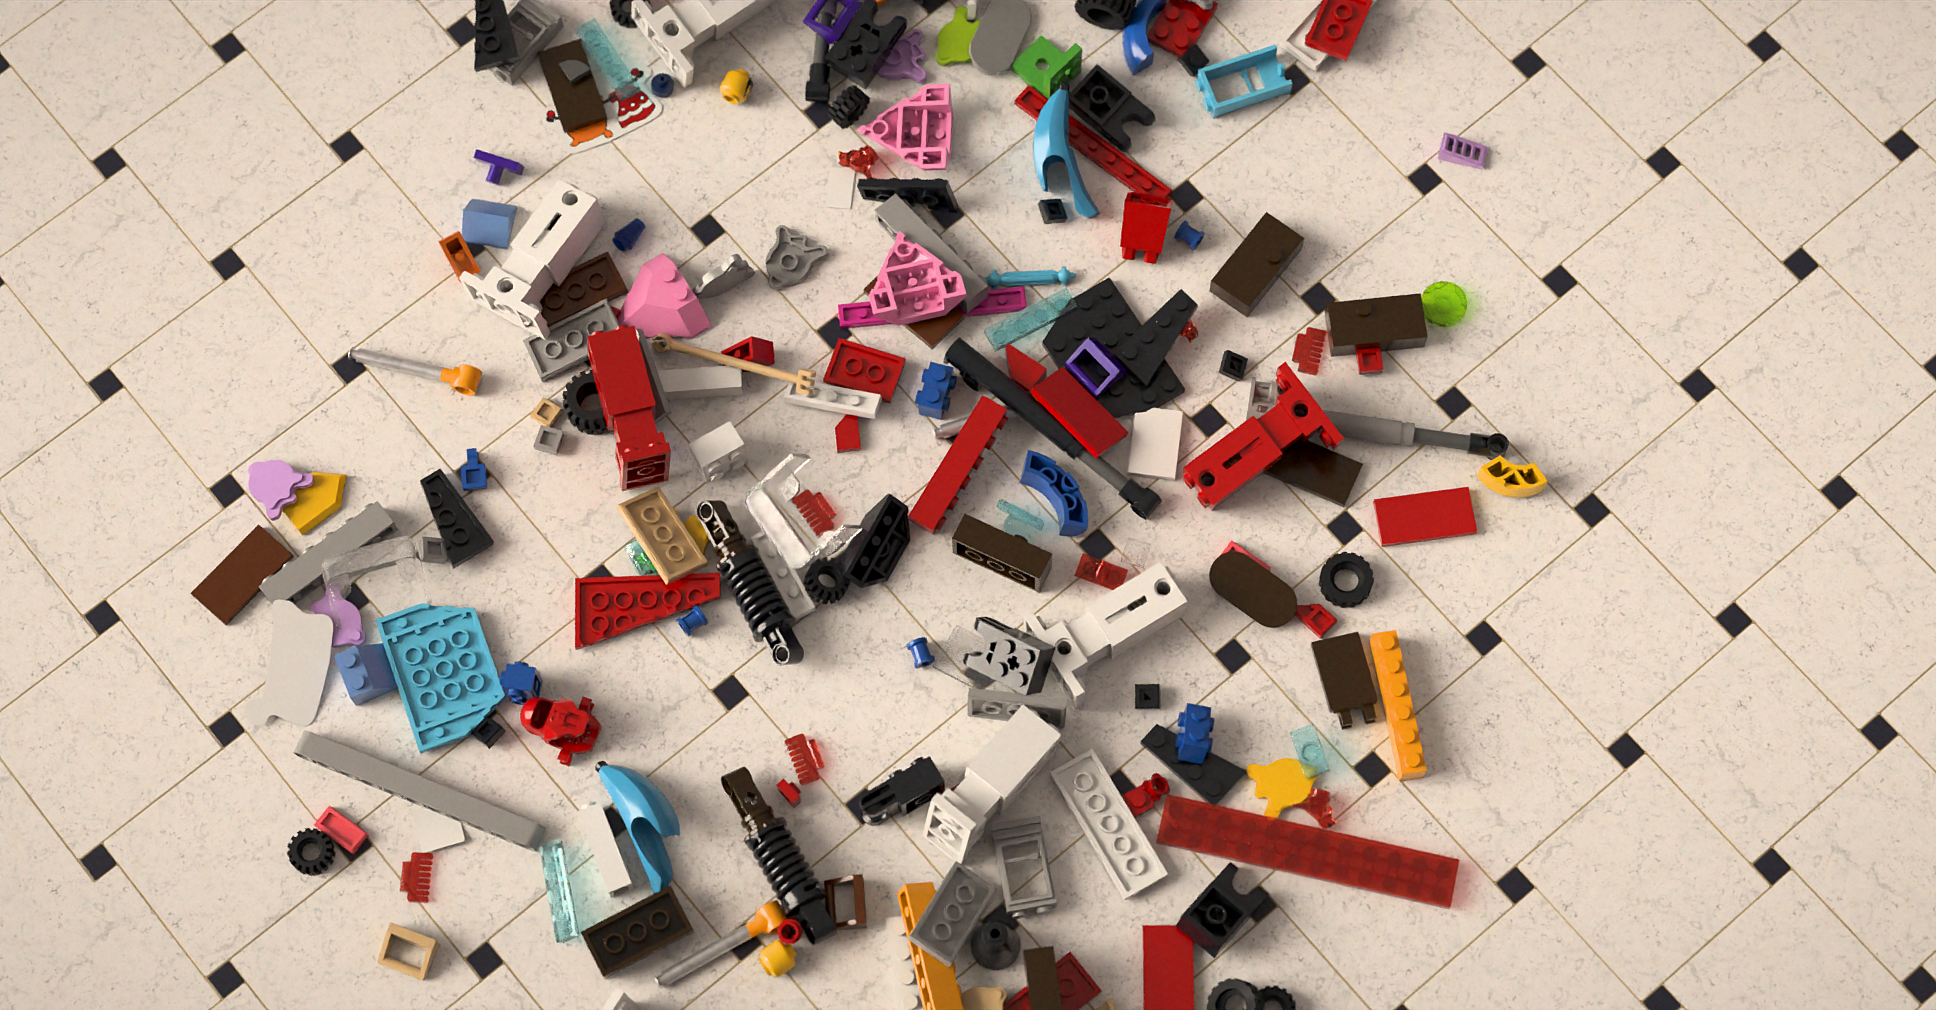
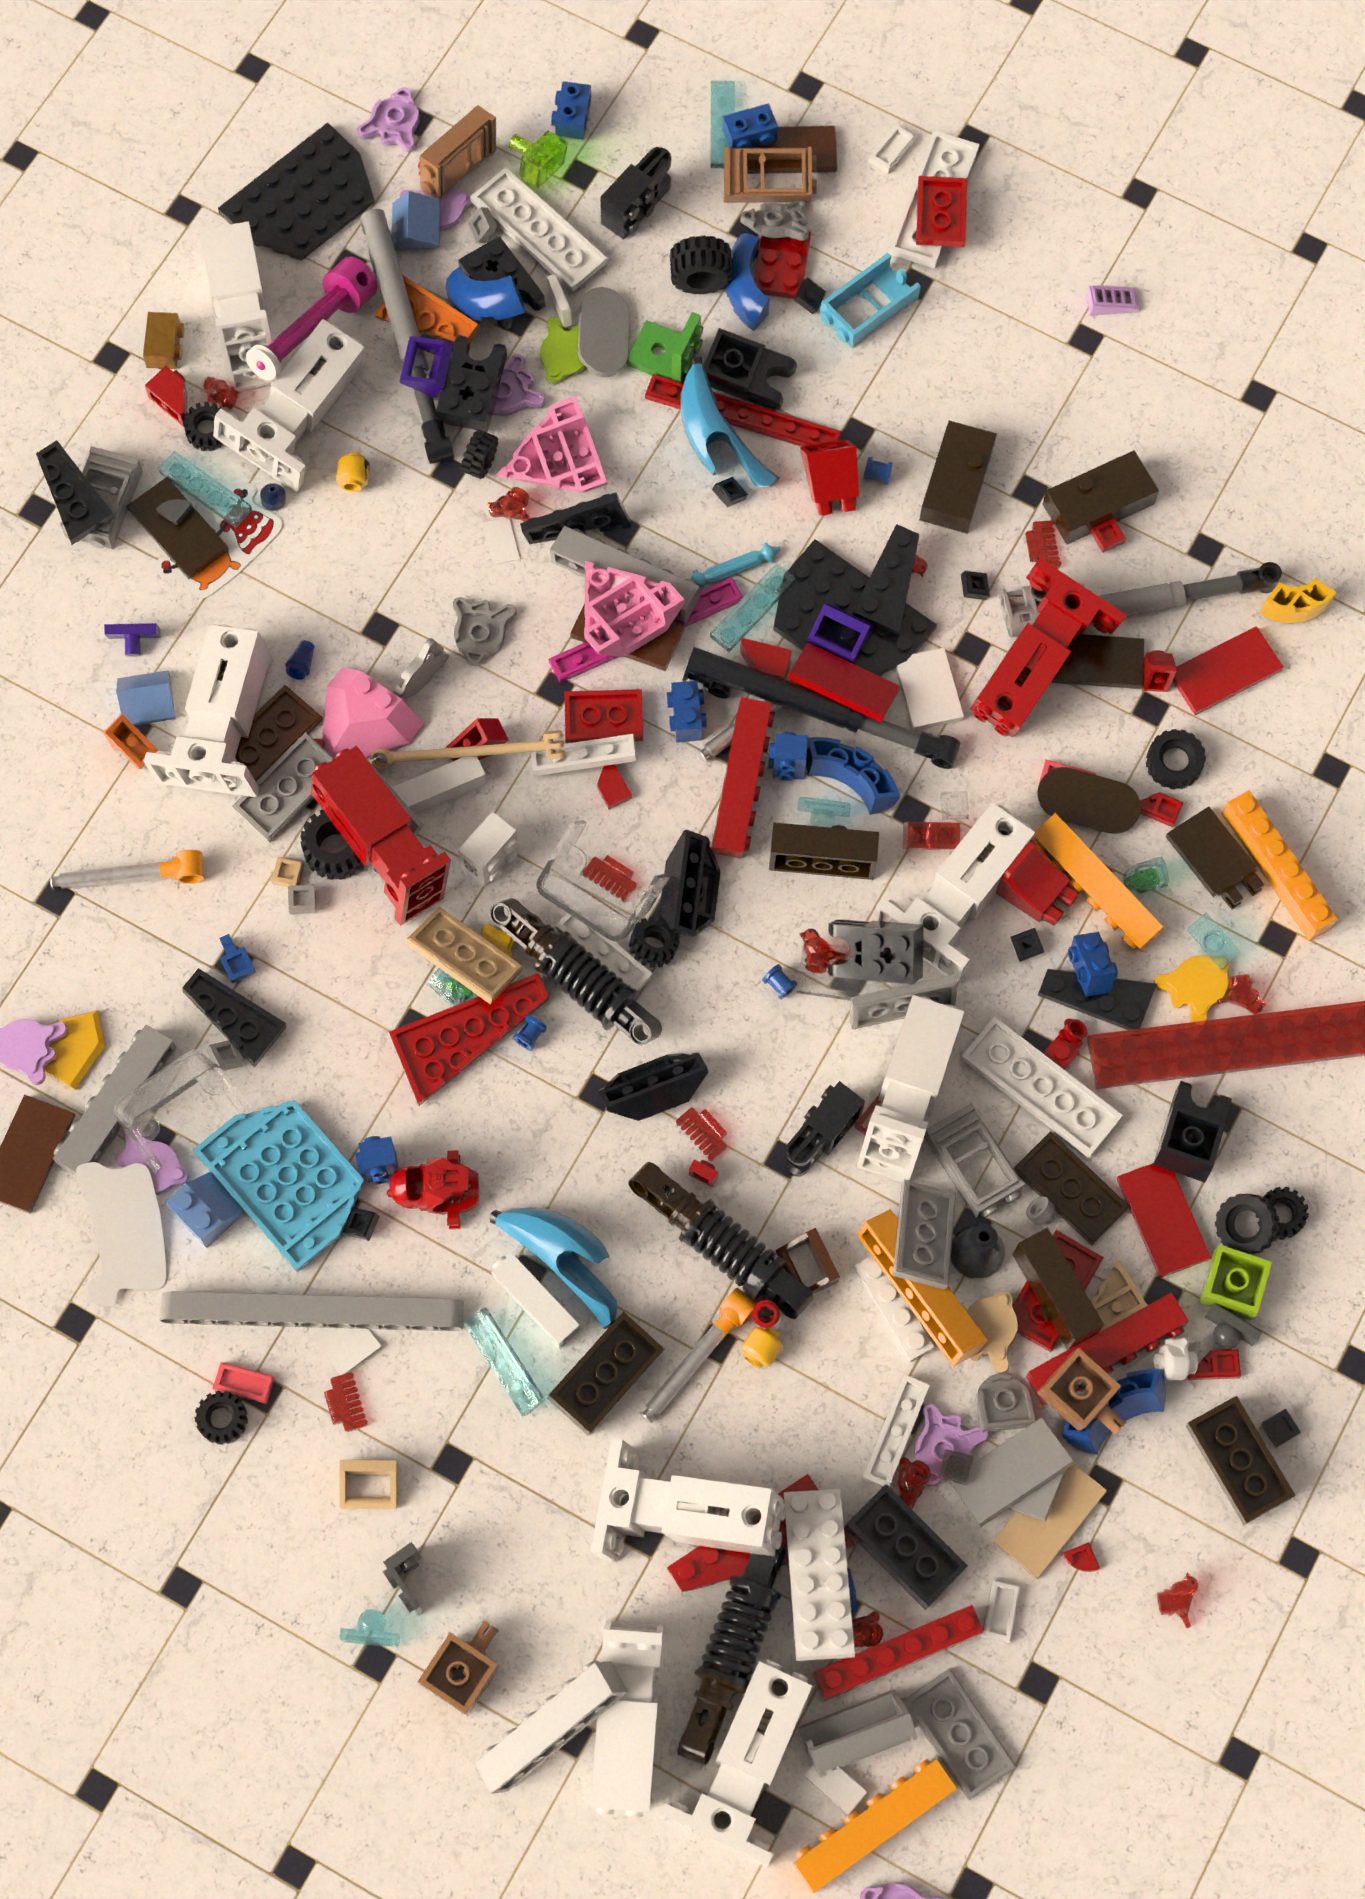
camera: 25 degrees left, 0 degrees up
(775, 704) = (654, 1086): none -> black wedge
(962, 638) = (818, 952): none -> clear red animal
(1005, 460) = (788, 756): none -> blue brick
(1063, 931) = (1041, 1211): none -> light grey tile
(1099, 921) = (1072, 1188): none -> dark brown tile
(1175, 647) = (1036, 885): none -> red hips
(1231, 664) = (1098, 882): none -> light orange brick
(1277, 673) = (1147, 876): none -> rock
(1361, 496) = (1158, 671): none -> red slope
(1444, 303) = (1158, 453): clear neon green tile -> none

